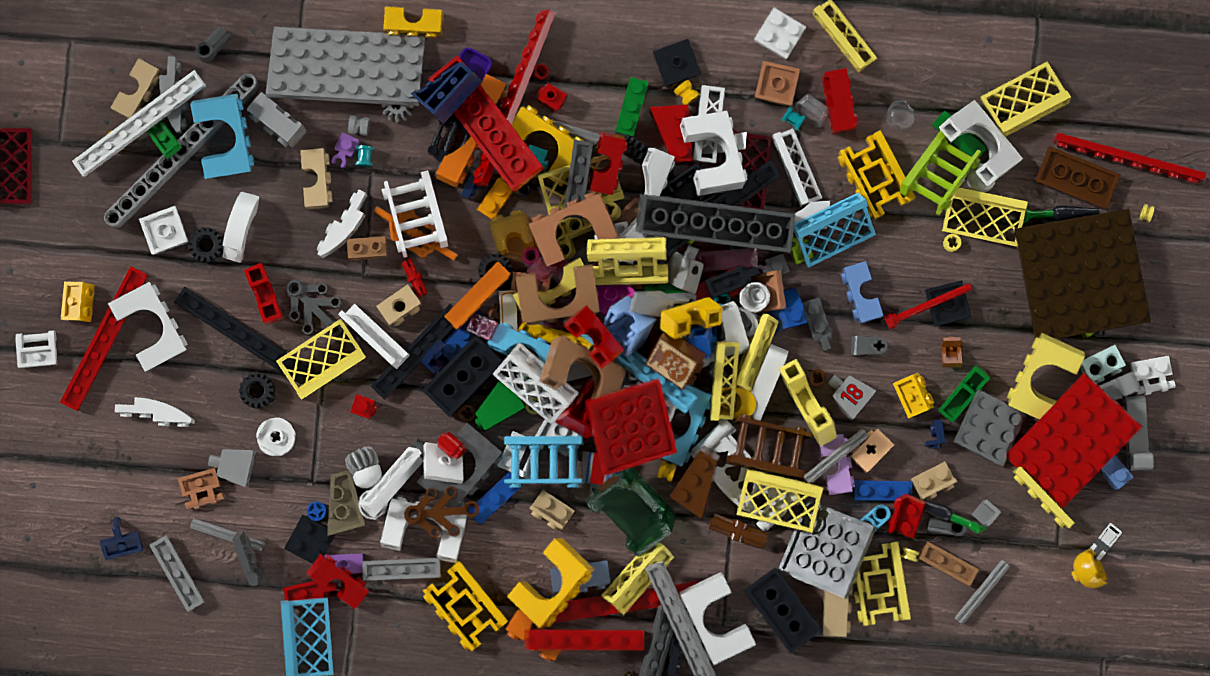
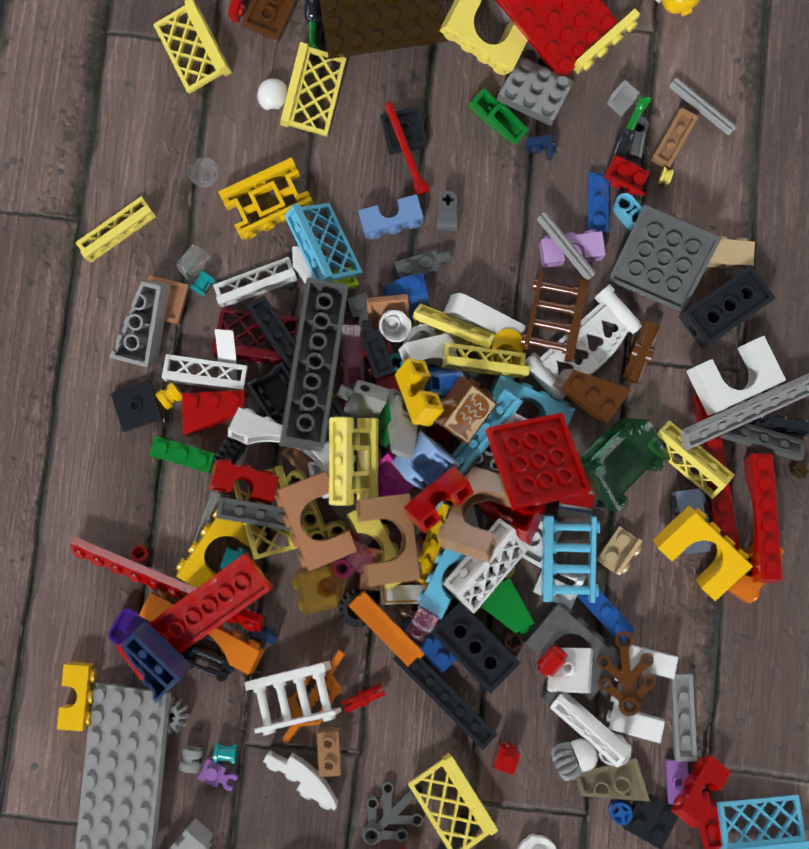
camera: 90 degrees left, 0 degrees up
(318, 195) = (266, 805): tan arch -> none
(375, 336) = (428, 745): white fence -> none
(404, 295) = (396, 728): tan brick -> none
(433, 358) = (453, 678): dark blue bracket -> none
(476, 597) = (715, 631): yellow fence -> none
(495, 199) = (279, 607): light orange hinge -> none
(523, 192) = (271, 575): black hinge -> none
(551, 97) = (168, 542): red brick -> none
(666, 470) = (577, 426): yellow wheel -> none
(716, 128) = (210, 359): white arch -> none
(749, 67) = (144, 325): none -> light grey wedge
(779, 33) = (110, 296): white plate -> none
(783, 483) = (596, 297): light yellow fence -> none
(811, 378) = (479, 273): reddish brown bush -> none
(814, 415) = (488, 285): light yellow arch -> none
(839, 101) = (178, 235): red wedge -> none
(850, 395) = (499, 231): light grey torso -> none
(881, 444) = (555, 202): light nougat brick -> none
(895, 581) = (699, 191): light yellow fence -> none
(914, 395) = (499, 168): yellow bracket -> none
(931, 156) = (263, 149): lime fence -> none
(933, 481) = (589, 150): tan bracket -> none
(946, 243) = (341, 131): light yellow bush -> none
(951, 351) = (455, 128): dark orange bracket -> none
(966, 142) = (228, 115): green tile -> none
(975, 121) = (248, 70): white arch -> none

